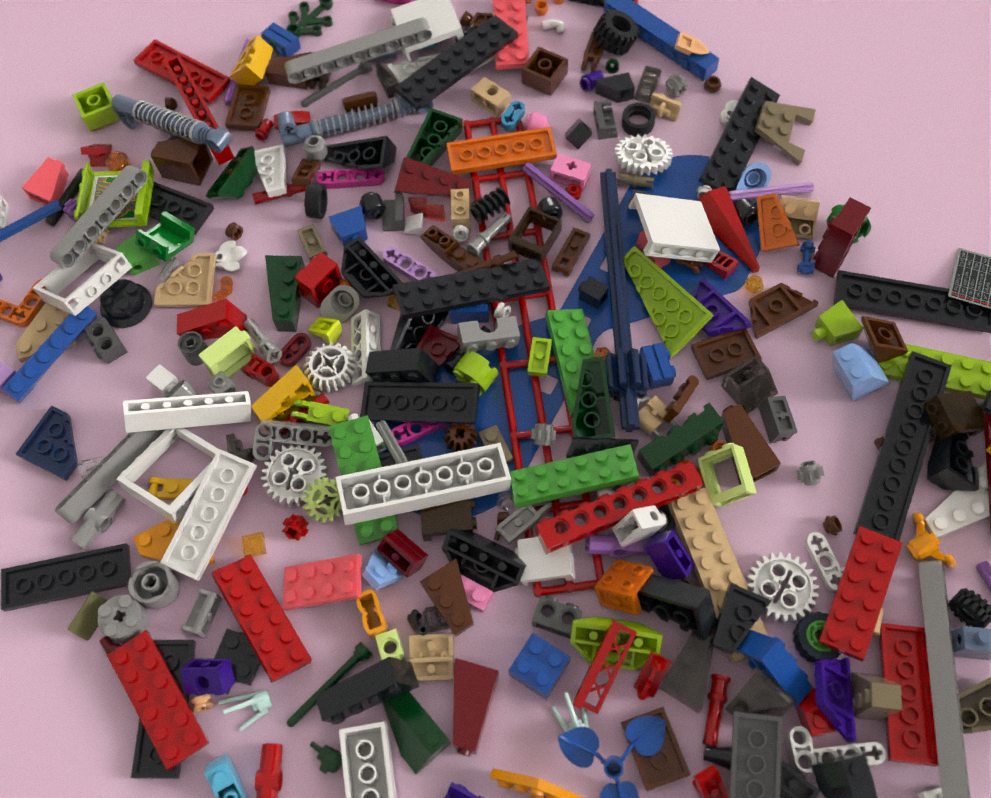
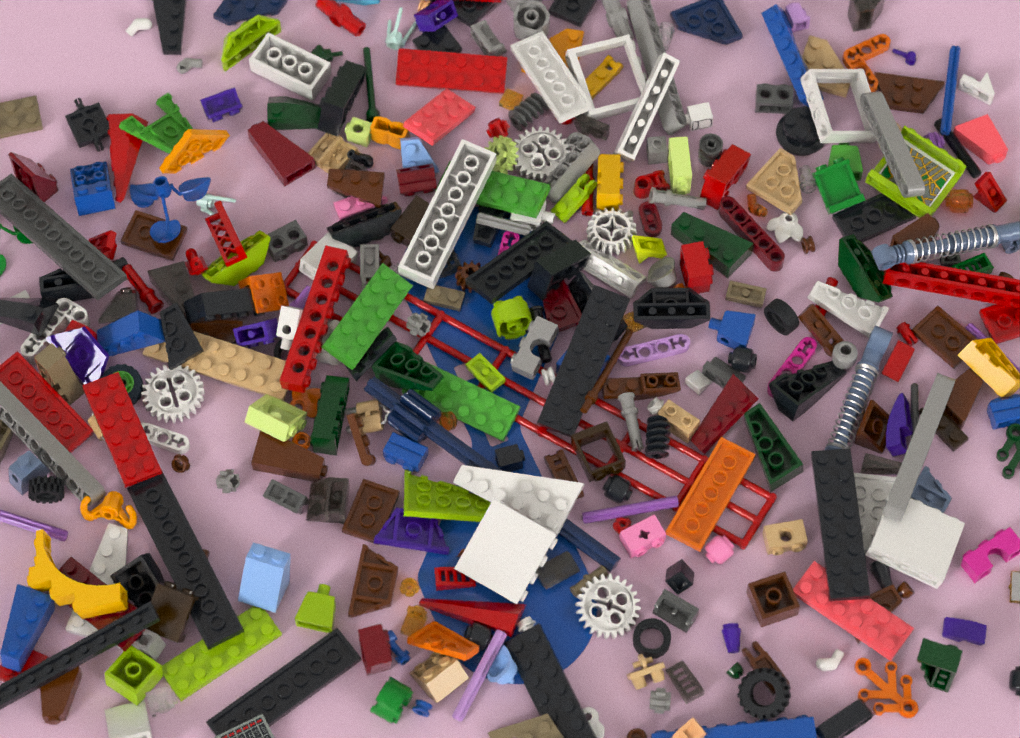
camera: 125 degrees right, 0 degrees up
(31, 258) = (907, 92): none -> reddish brown wing
(255, 262) = (750, 225): none -> dark red beam
(258, 517) = (526, 110): none -> dark grey piece
(346, 86) = (899, 426): none -> dark purple slope
(429, 211) = (706, 396): clear red slope -> none
(509, 114) = (747, 532): dark azure beam -> none
(539, 666) = (264, 206): blue brick -> none
(616, 87) = (702, 649): black slope -> none
(618, 249) = (535, 497): none -> white wing
(775, 262) = (414, 620): none -> clear yellow bracket
(826, 208) = (422, 708): none -> blue bush
(883, 338) = (274, 621): reddish brown slope -> none

